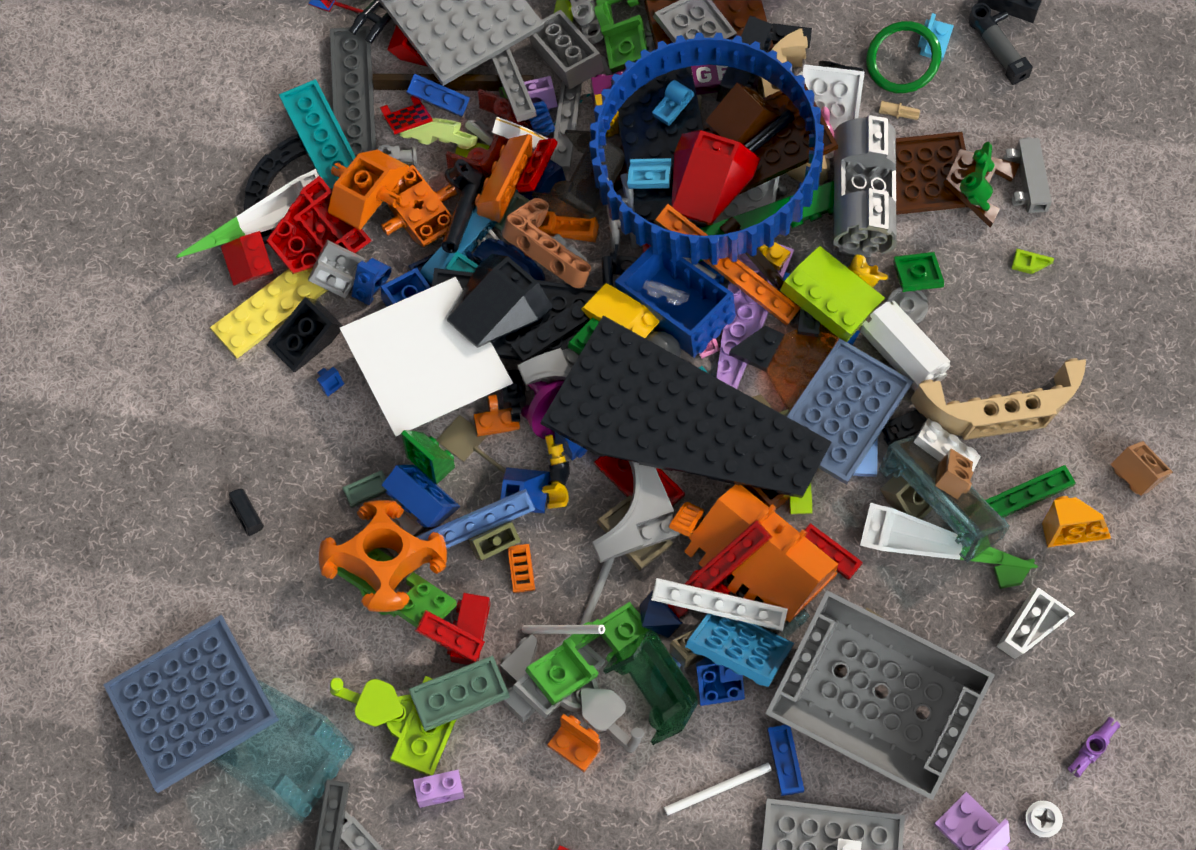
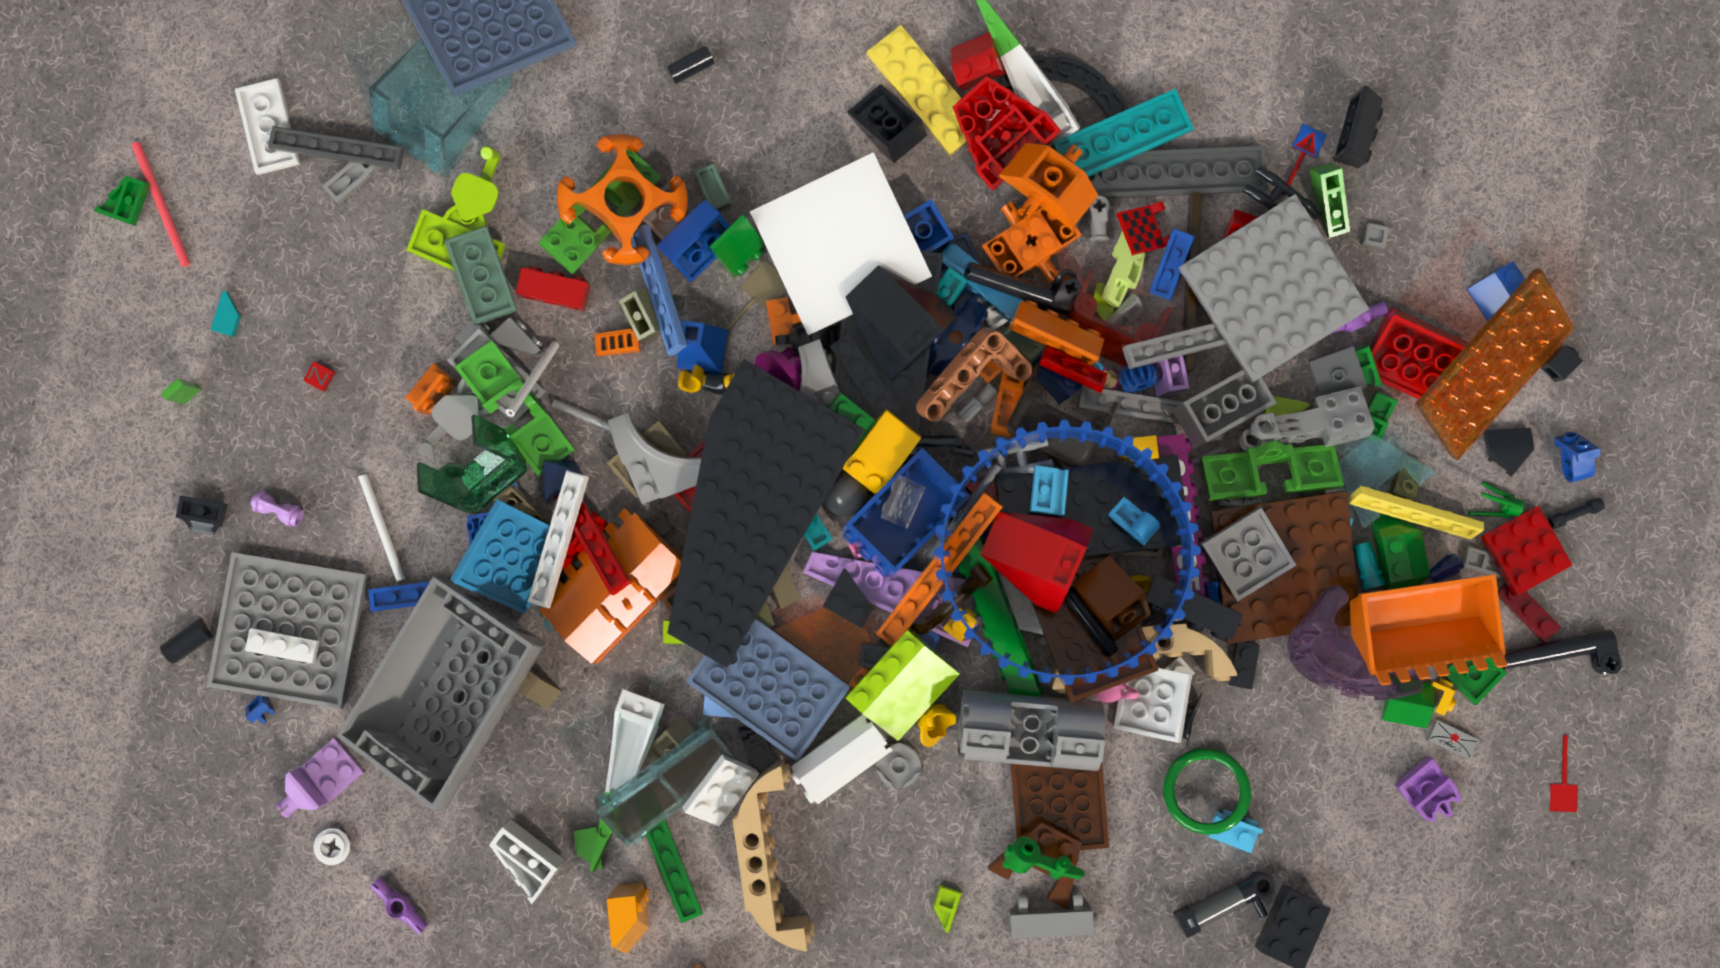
camera: 90 degrees right, 20 degrees up
(329, 380) = (832, 148): blue tile -> none
(335, 269) = (958, 153): light grey slope -> none
(369, 279) = (948, 190): blue pin -> none
(438, 788) = (391, 255): lavender brick -> none
(449, 636) = (533, 265): red tile -> none
(509, 130) = (1113, 353): white sticker -> none
(687, 519) = (662, 517): orange slope -> none
(847, 563) = (621, 658): red tile -> none
(898, 110) = (1140, 779): tan axle -> none
(918, 272) = (934, 781): green plate -> none
(954, 474) = (676, 793): medium nougat brick -> none

